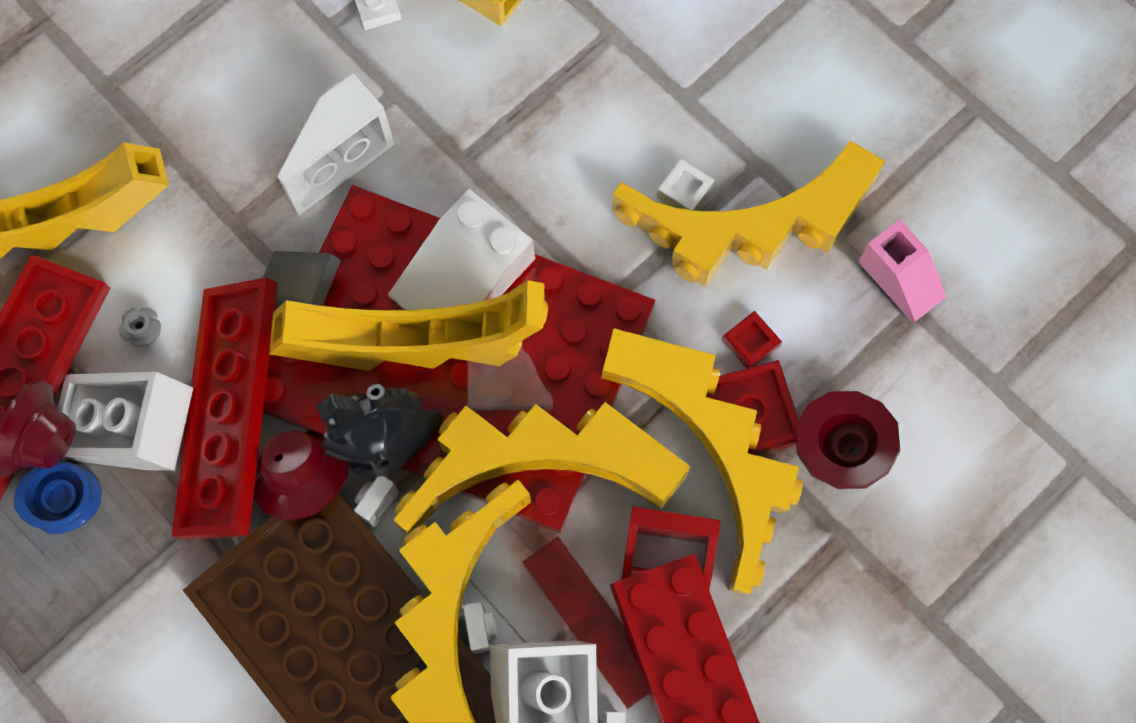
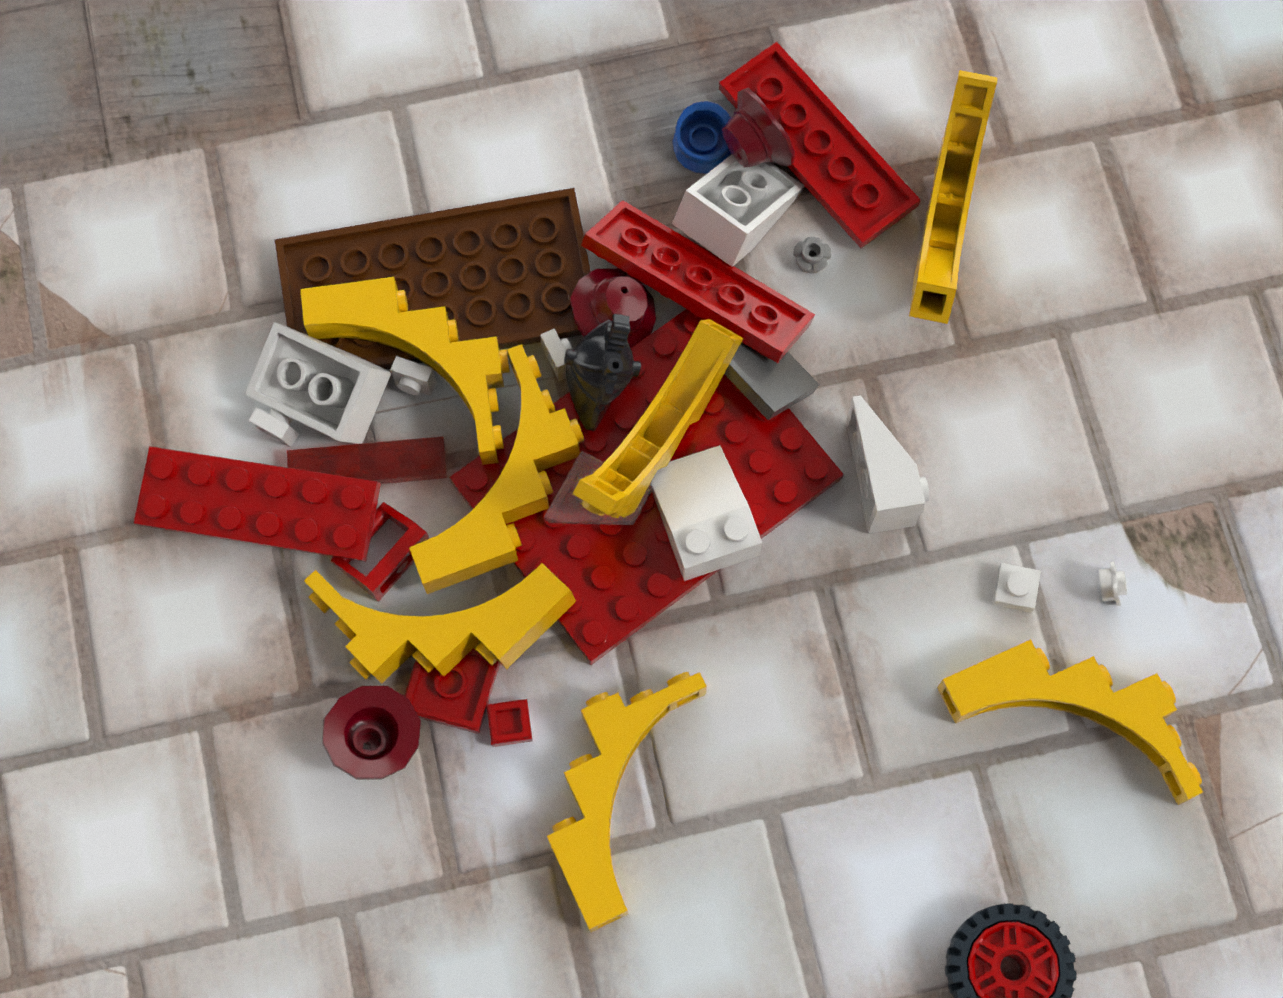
camera: 120 degrees right, 0 degrees up
(685, 186) = (676, 748): white plate -> none
(904, 270) = (483, 882): bright pink slope -> none

